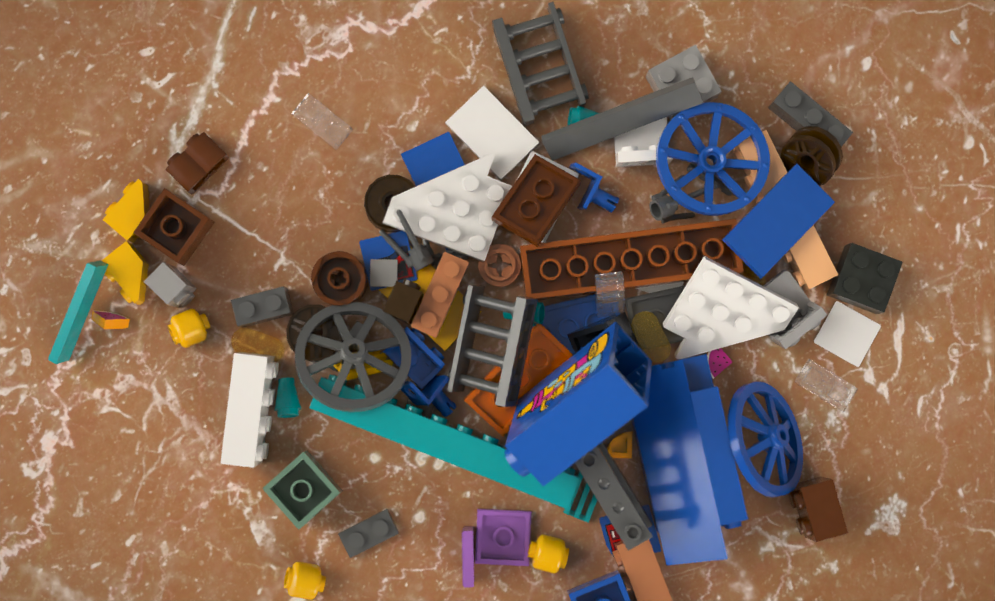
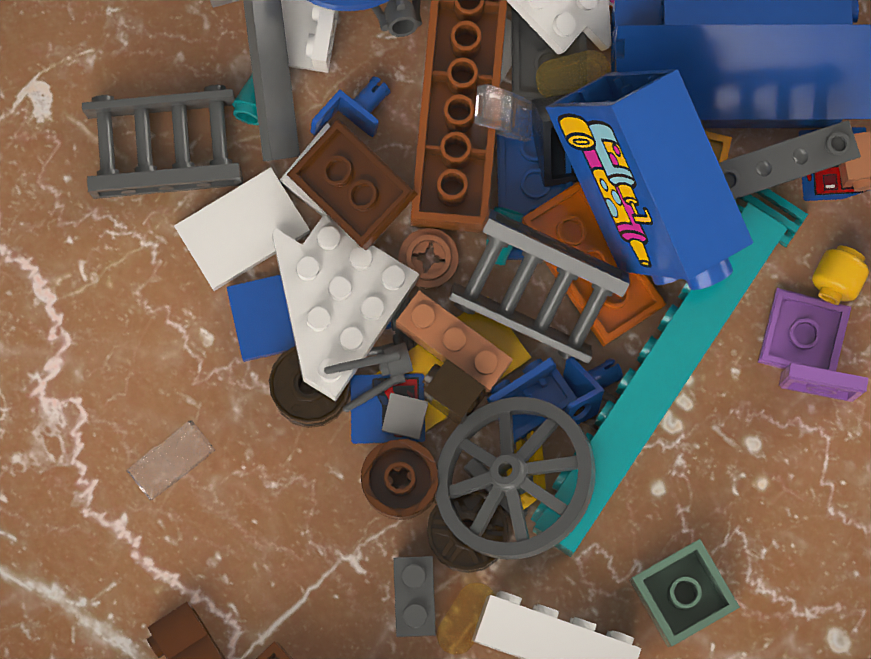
camera: 70 degrees left, 5 degrees down
(287, 399) = (553, 591): teal cone -> none
(304, 580) = (810, 620): yellow head -> none
(368, 533) = (761, 518): dark grey plate -> none

